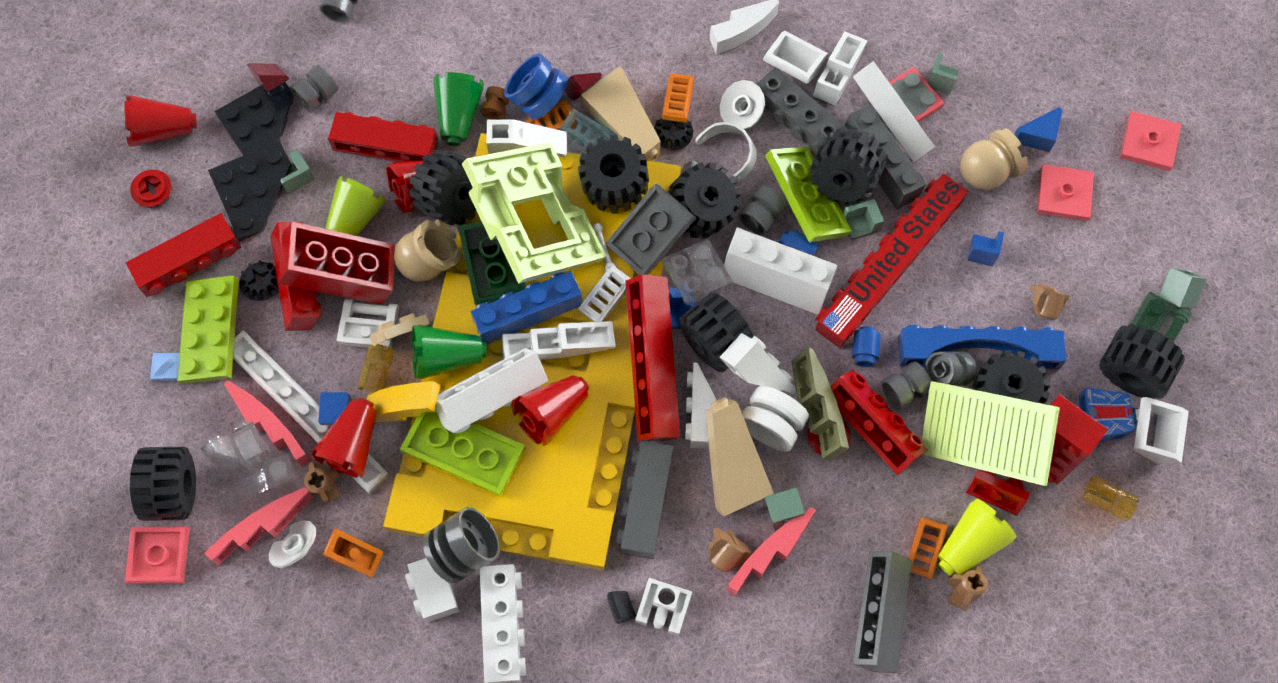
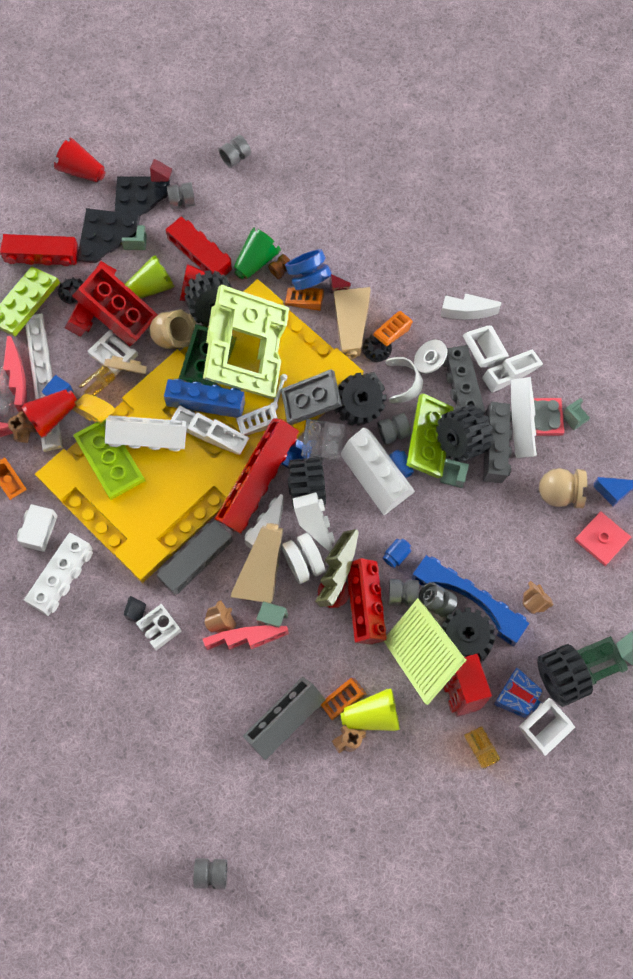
camera: 35 degrees right, 0 degrees up
(139, 188) = (46, 196): red gear -> none
(444, 351) = (137, 393): green cone -> none
(461, 545) = (65, 512): dark grey wheel -> none
(514, 134) = (271, 290): white slope -> none
(549, 407) = (175, 465): red cone -> none
(592, 125) = (316, 320): clear light blue slope -> none
(614, 173) = (313, 349): black wheel -> none
(891, 260) = (453, 509): red brick -> none
(985, 249) = (520, 540): blue panel -> none
(1006, 495) = (411, 696): red tile -> none

